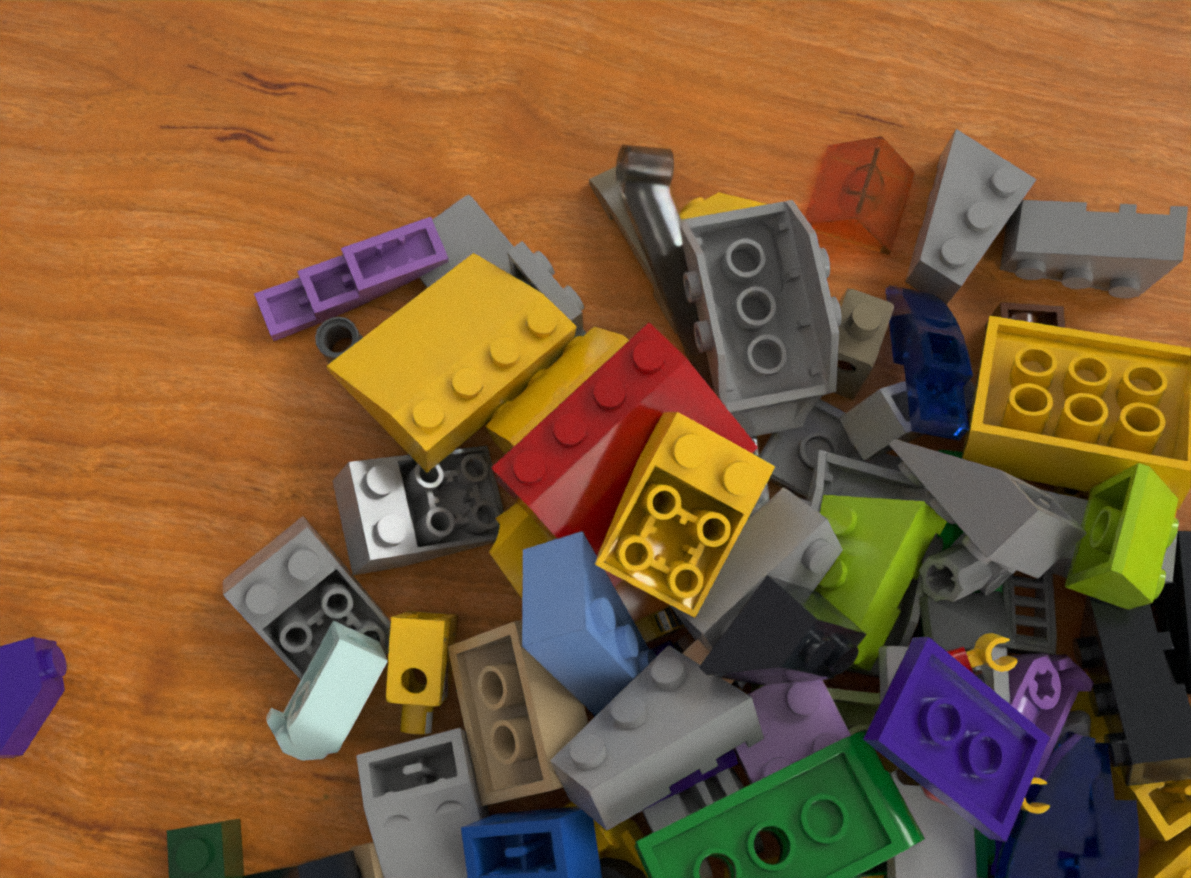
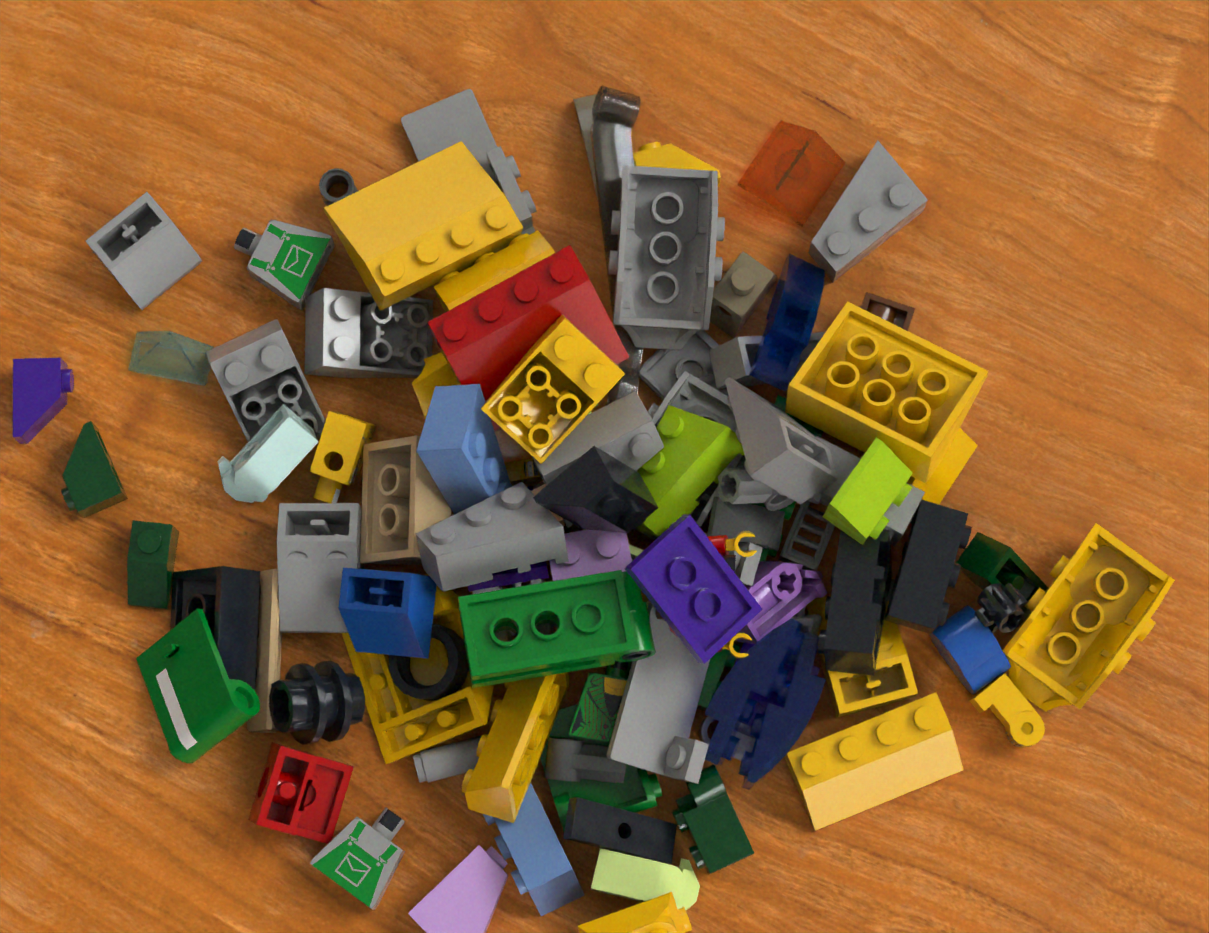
camera: 15 degrees right, 5 degrees up
(106, 776) = (91, 475): none -> dark green slope
(115, 475) = (144, 250): none -> light grey slope
(180, 597) = (170, 357): none -> clear light blue slope
(297, 440) = (286, 259): none -> torso
(353, 279) = (359, 136): medium lavender slope -> none
(1093, 249) = (955, 264): light grey wedge -> none

